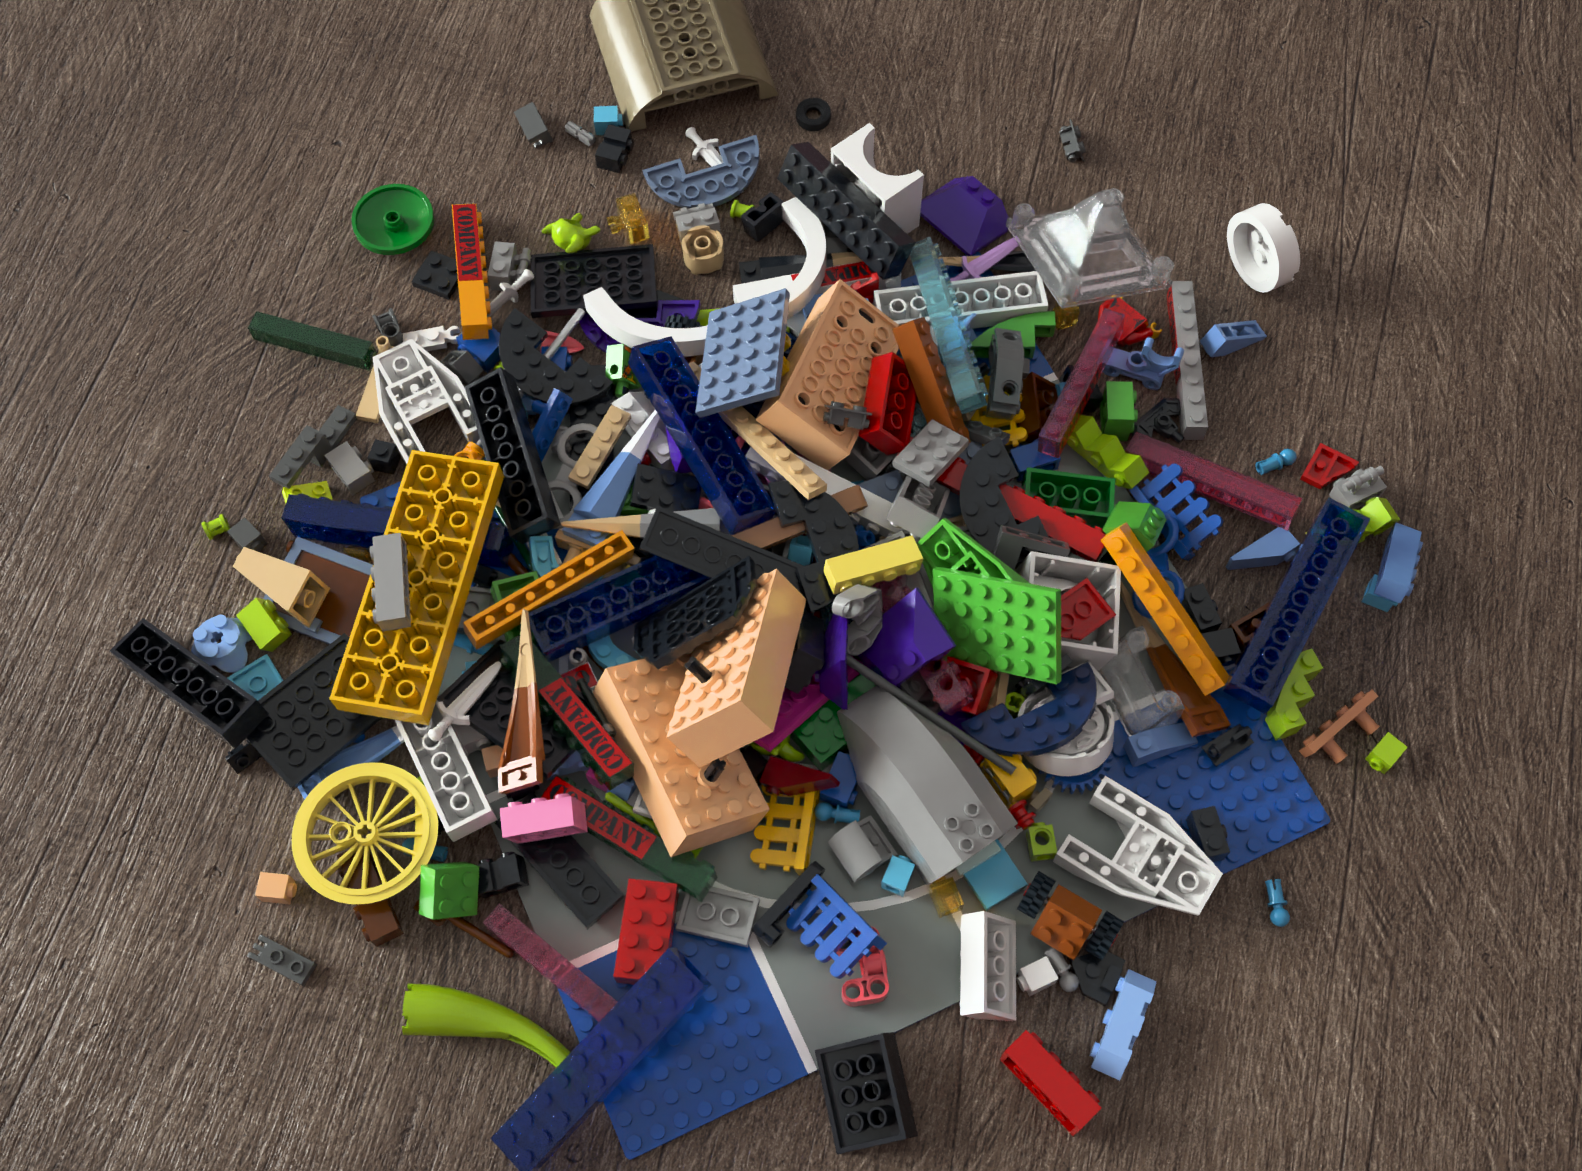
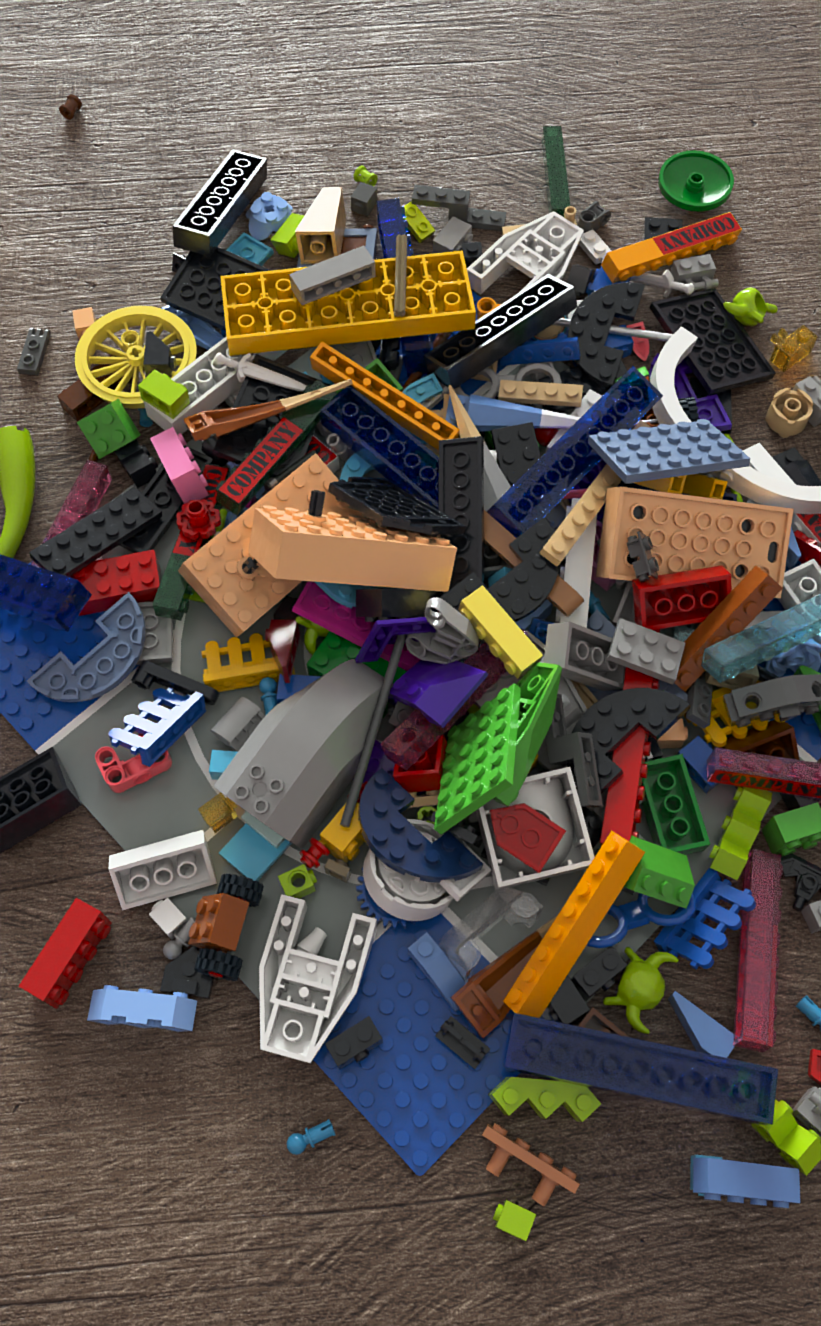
camera: 70 degrees right, 0 degrees up
(389, 804) = (158, 356): none -> black slope
(420, 517) = (400, 276): none -> dark tan axle
(455, 804) = (164, 393): none -> lime brick
(587, 935) = (96, 533): none -> black plate
(615, 819) = (198, 519): none -> red plant
(745, 967) = (104, 665): none -> sand blue plate
(1103, 845) = (313, 942): none -> white cone
(1220, 582) = (641, 986): none -> lime piece

